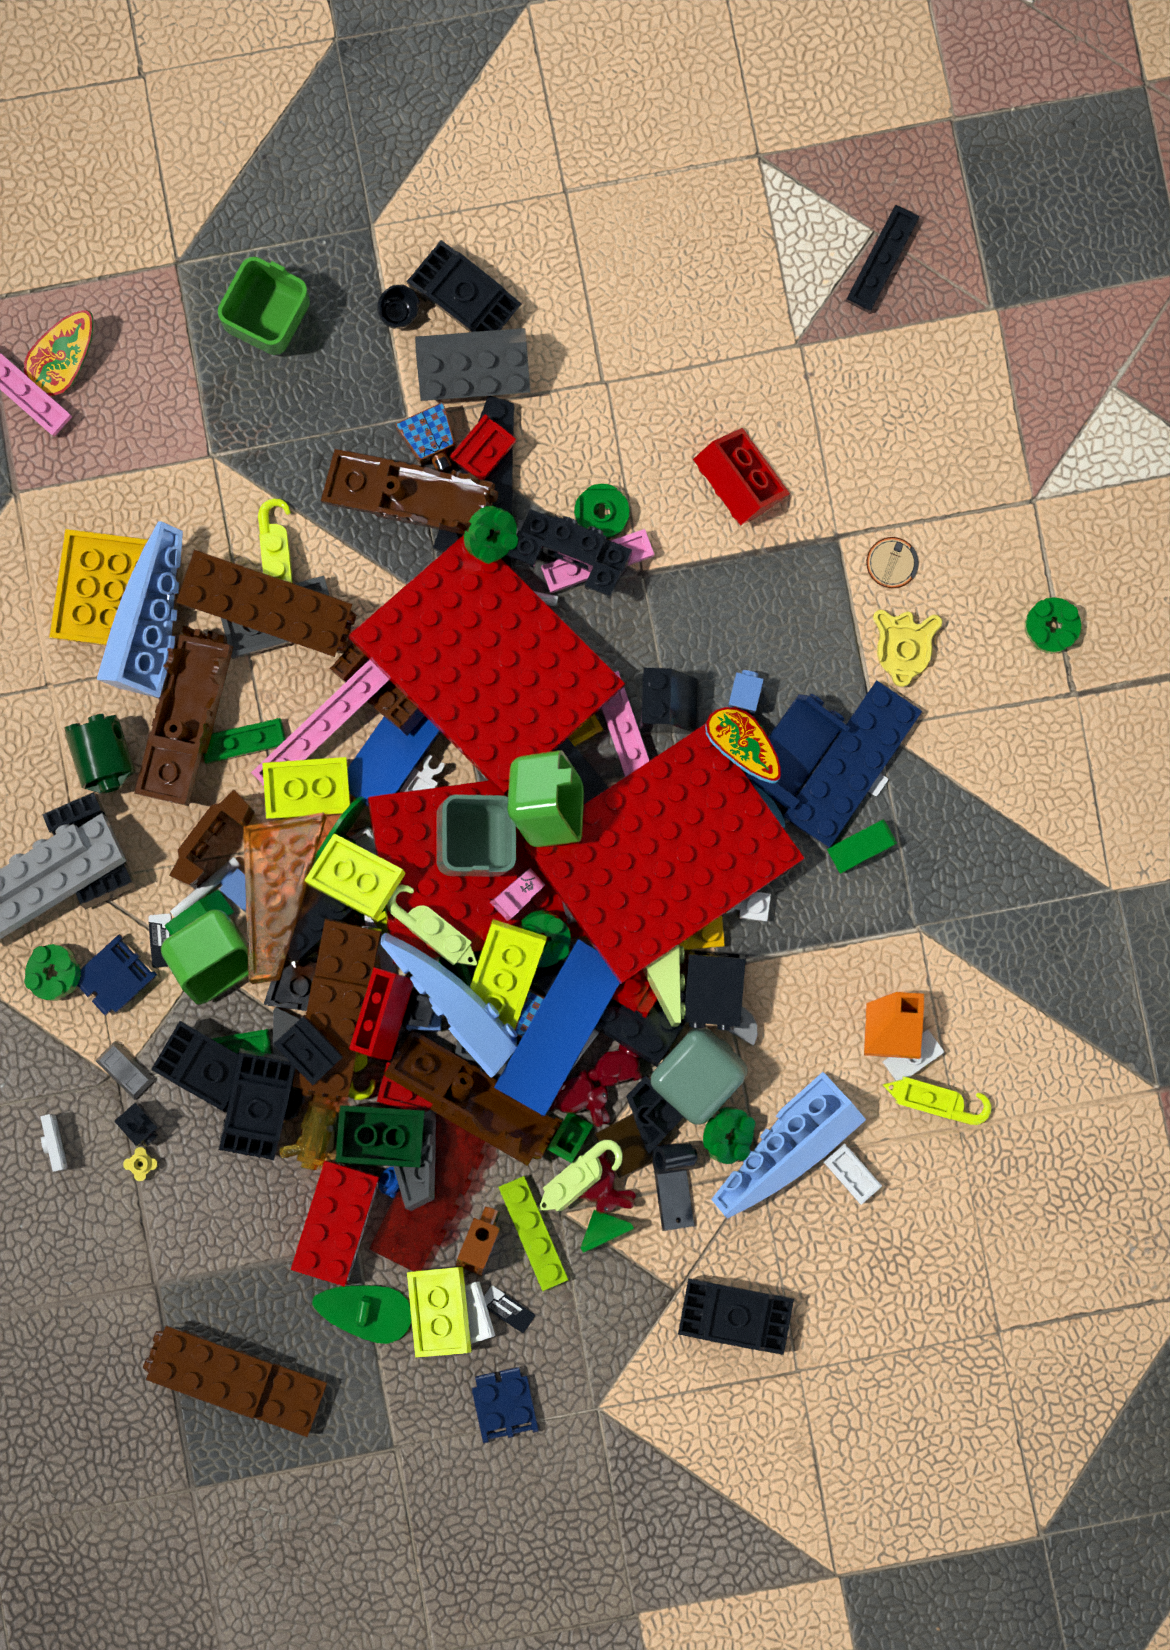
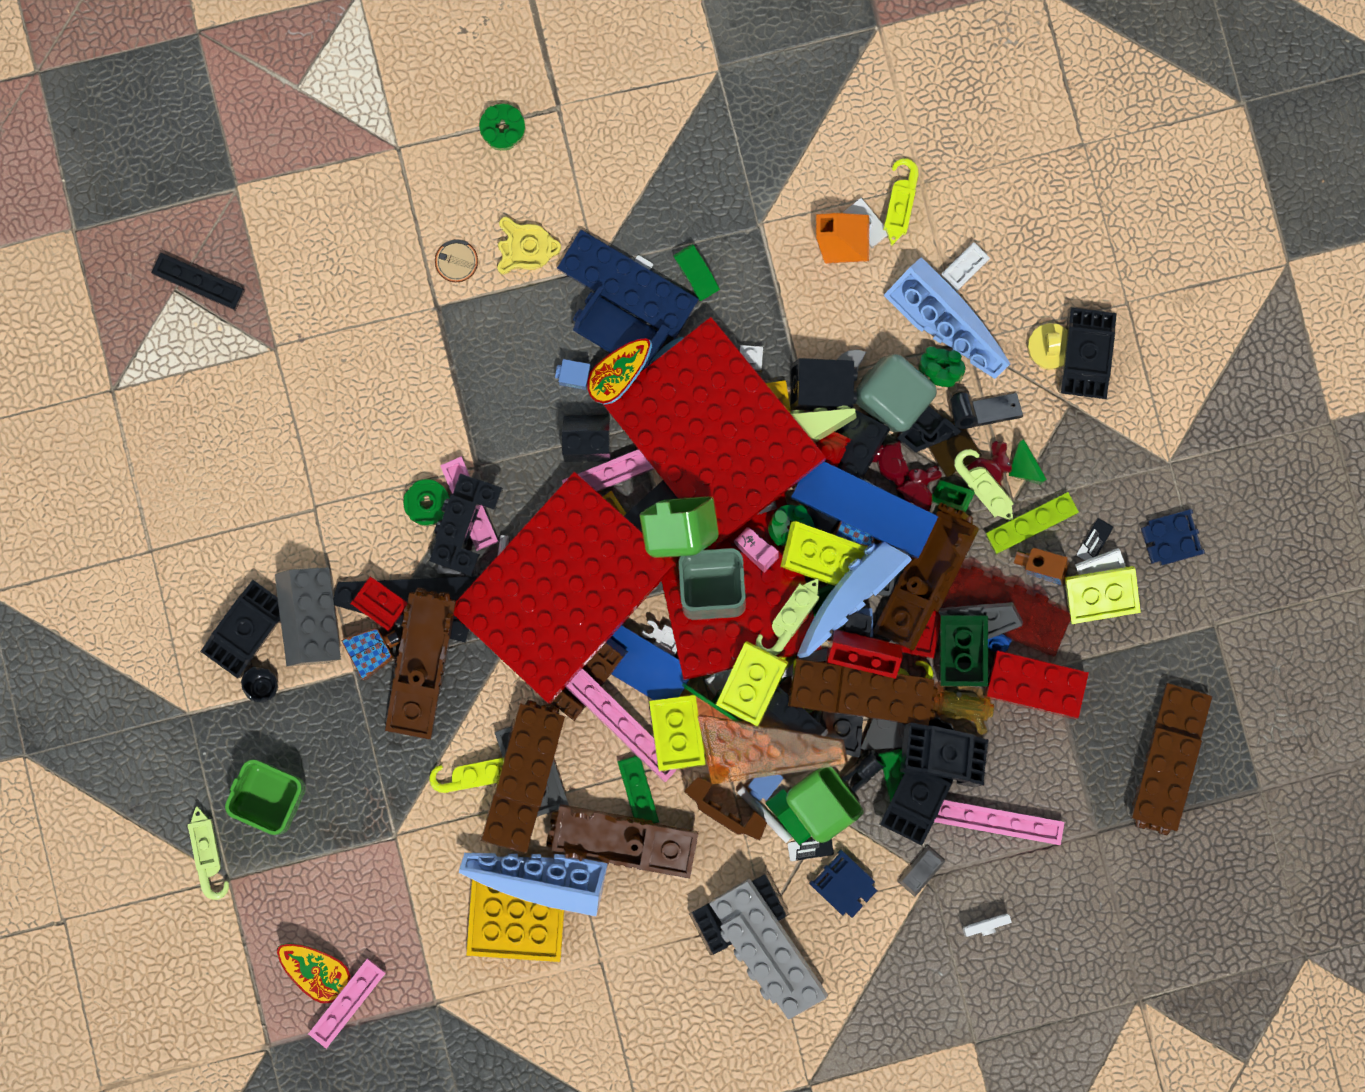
camera: 90 degrees left, 0 degrees up
(37, 972) = (846, 950): green plate -> none
(100, 753) = (658, 909): dark green cylinder -> none
(132, 1164) = (992, 851): light yellow plate -> none
(138, 1125) = (967, 855): black brick -> none
(174, 1168) = (1000, 822): none -> bright pink plate
(207, 237) = (205, 853): none -> yellowish green plate
(248, 1011) = (866, 769): none -> black hinge
(308, 1050) = (899, 711): black plate -> none
(366, 1311) = (1105, 656): green shield -> none
(502, 540) = (466, 592): green plate -> none
(740, 476) = (391, 388): red slope -> none
(749, 1268) = (1048, 346): none -> light yellow tile

